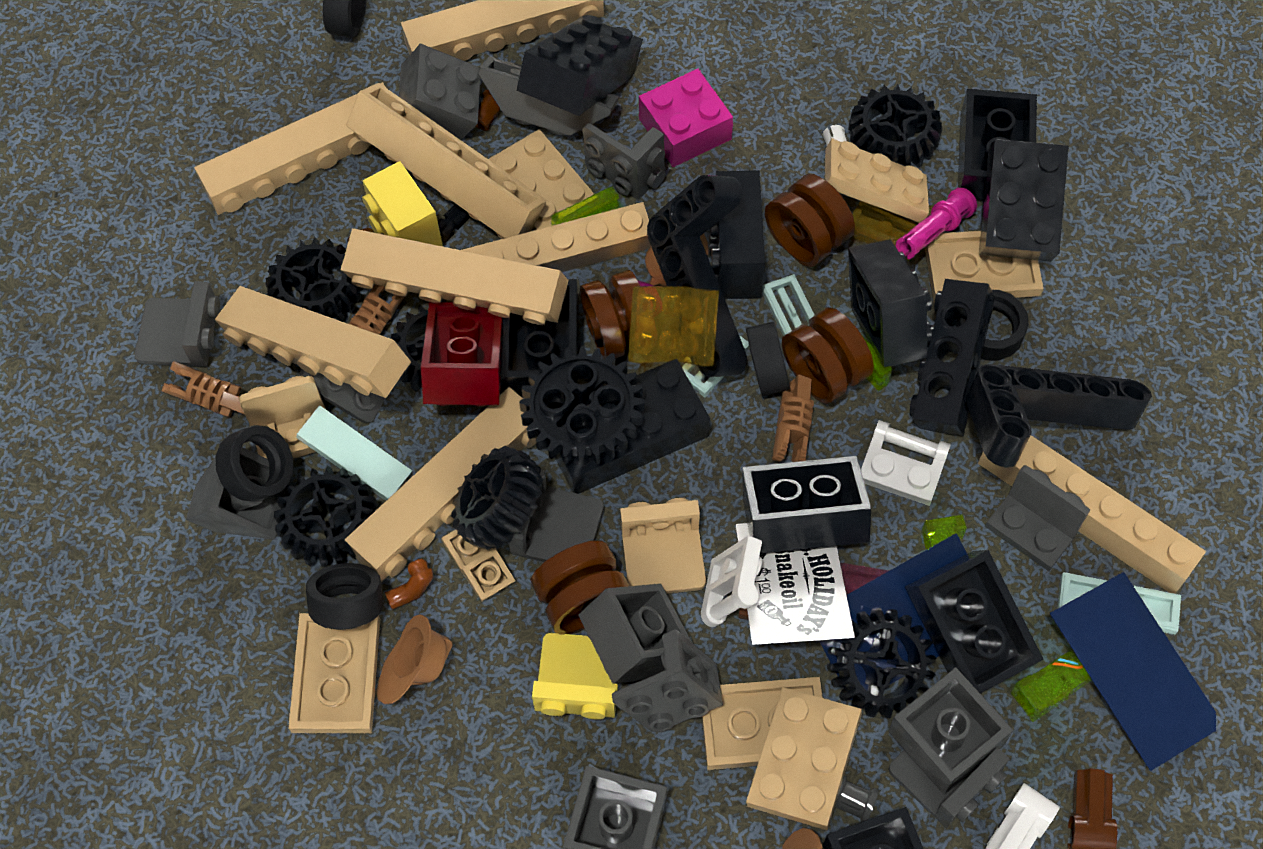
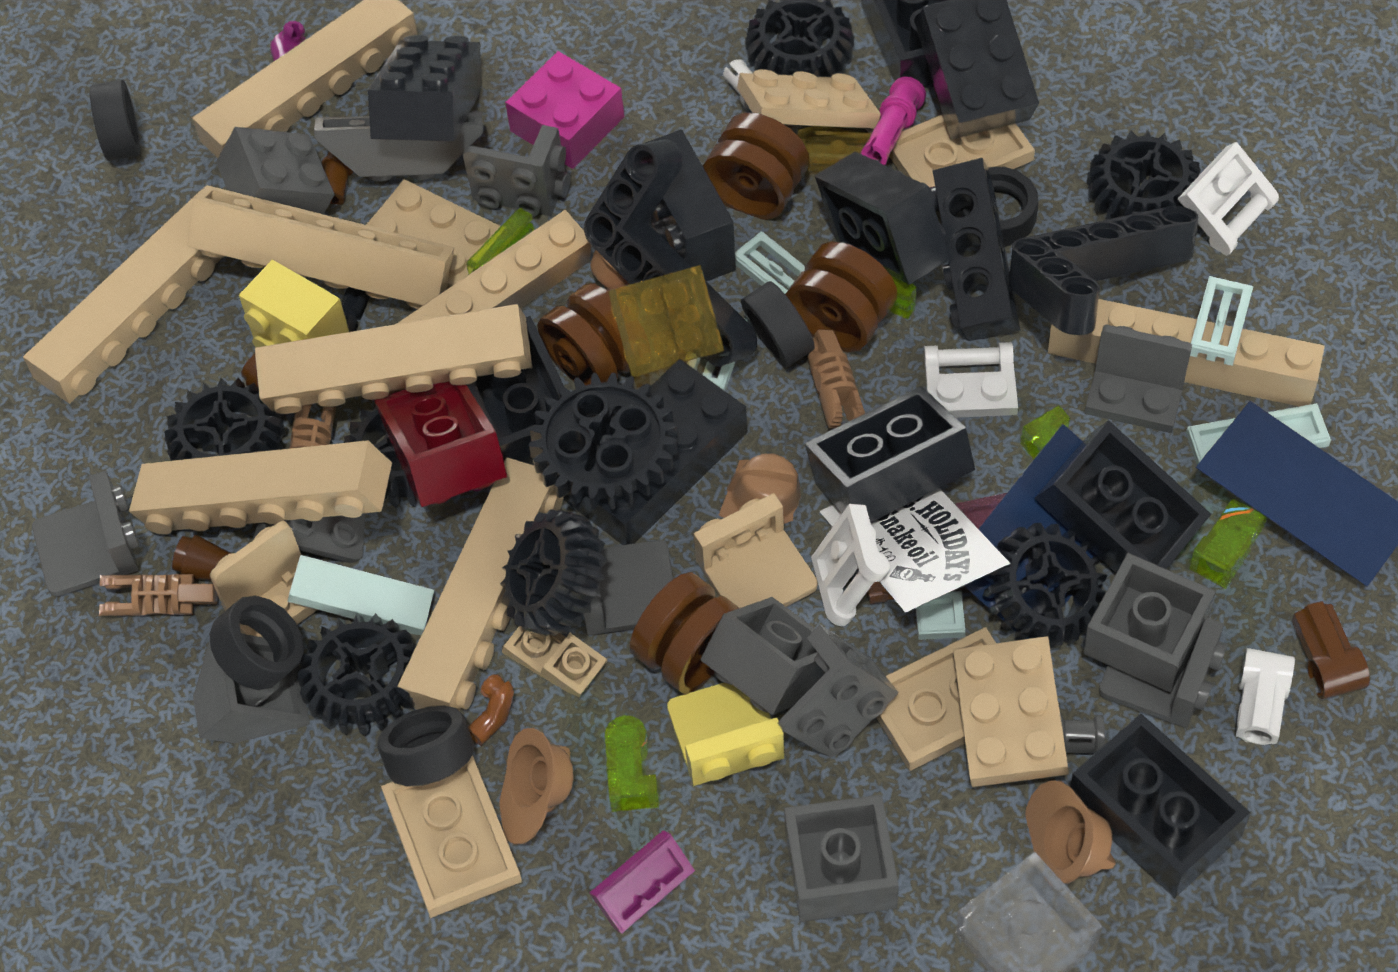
camera: 20 degrees left, 5 degrees down
(251, 373) = (197, 557): none -> reddish brown cone
(458, 774) = (642, 881): none -> magenta plate
(494, 660) = (625, 751): none -> clear neon green leg
(700, 482) = (761, 478): none -> medium nougat piece
(790, 656) = (941, 617): none -> light aqua tile
(1108, 520) = (1214, 349): none -> light aqua tile
(1116, 330) = (1126, 163): none -> black gear
(1181, 380) = (1219, 190): none -> white plate

